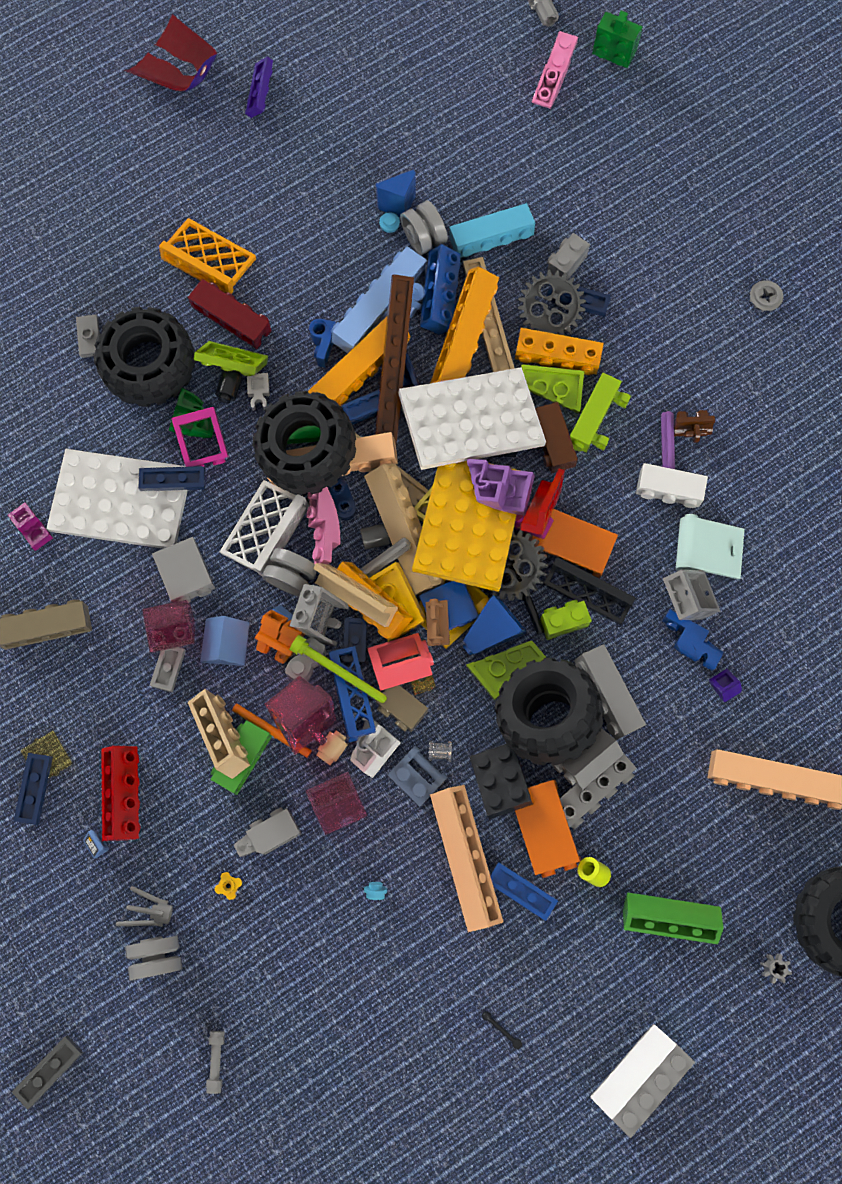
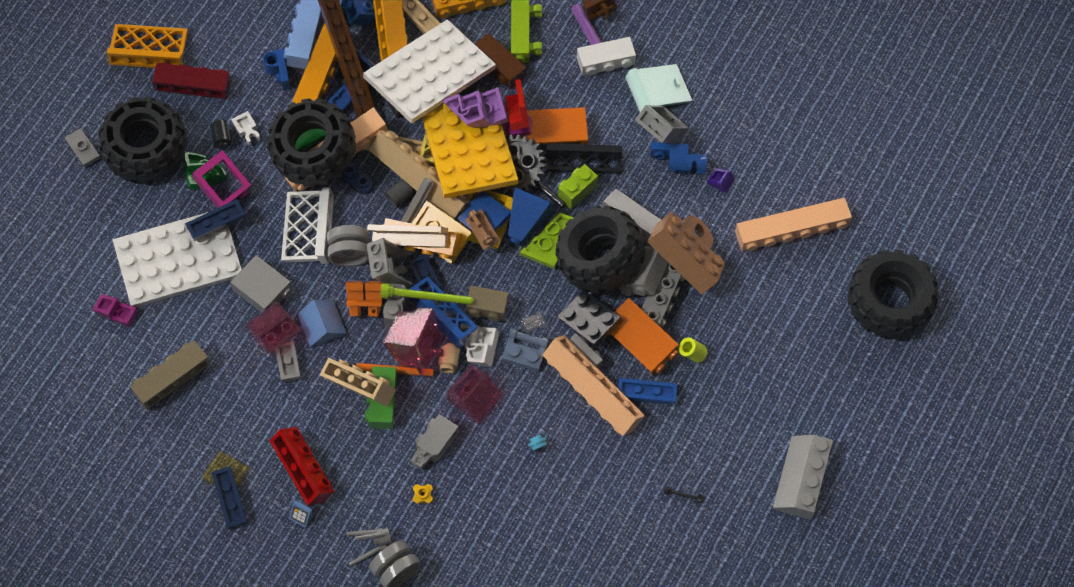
camera: 30 degrees left, 10 degrees down
(230, 358) = (213, 112): lime plate -> none
(324, 519) = (354, 198): bright pink slope -> none
(403, 671) = (468, 270): coral window -> none
(420, 687) = (491, 283): clear yellow plate -> none
(482, 823) = (583, 346): none -> light grey plate
(556, 385) = (480, 22): lime wing -> none
(645, 758) = (686, 251): none -> medium nougat brick
(672, 918) = (766, 354): bright green brick -> none
(782, 970) = (853, 351): light grey gear -> none

